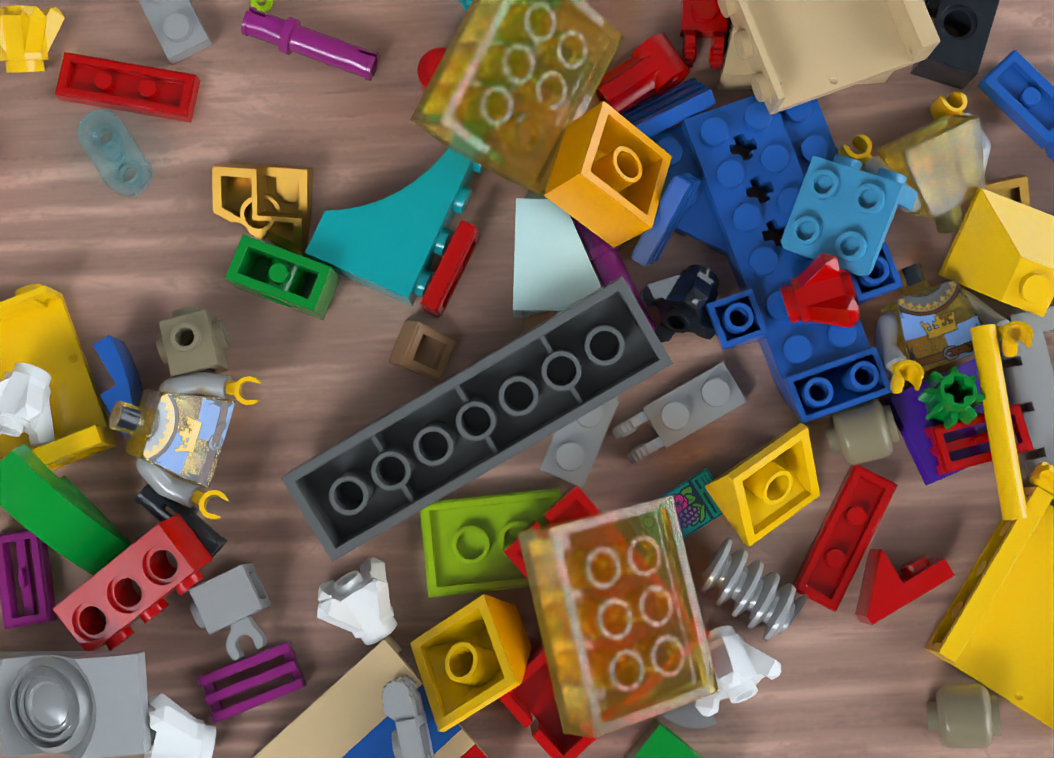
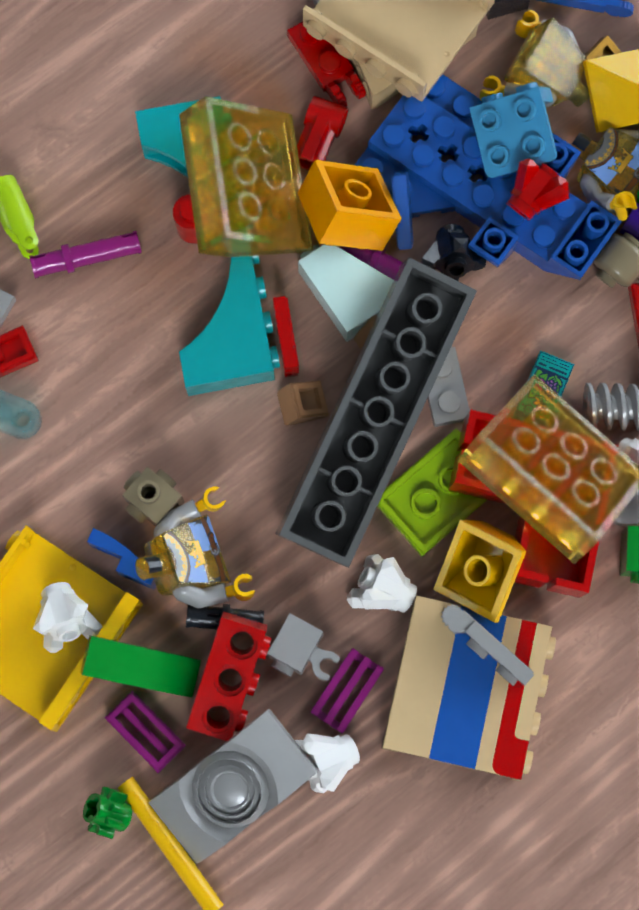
camera: 40 degrees left, 5 degrees down
(267, 200) = (130, 375): pearl gold slope -> none
(282, 277) = (181, 413): green brick -> none
(670, 107) = (354, 137): blue tile -> none
(684, 410) = (500, 325): light grey hinge -> none
(768, 485) = (586, 333): yellow slope -> none

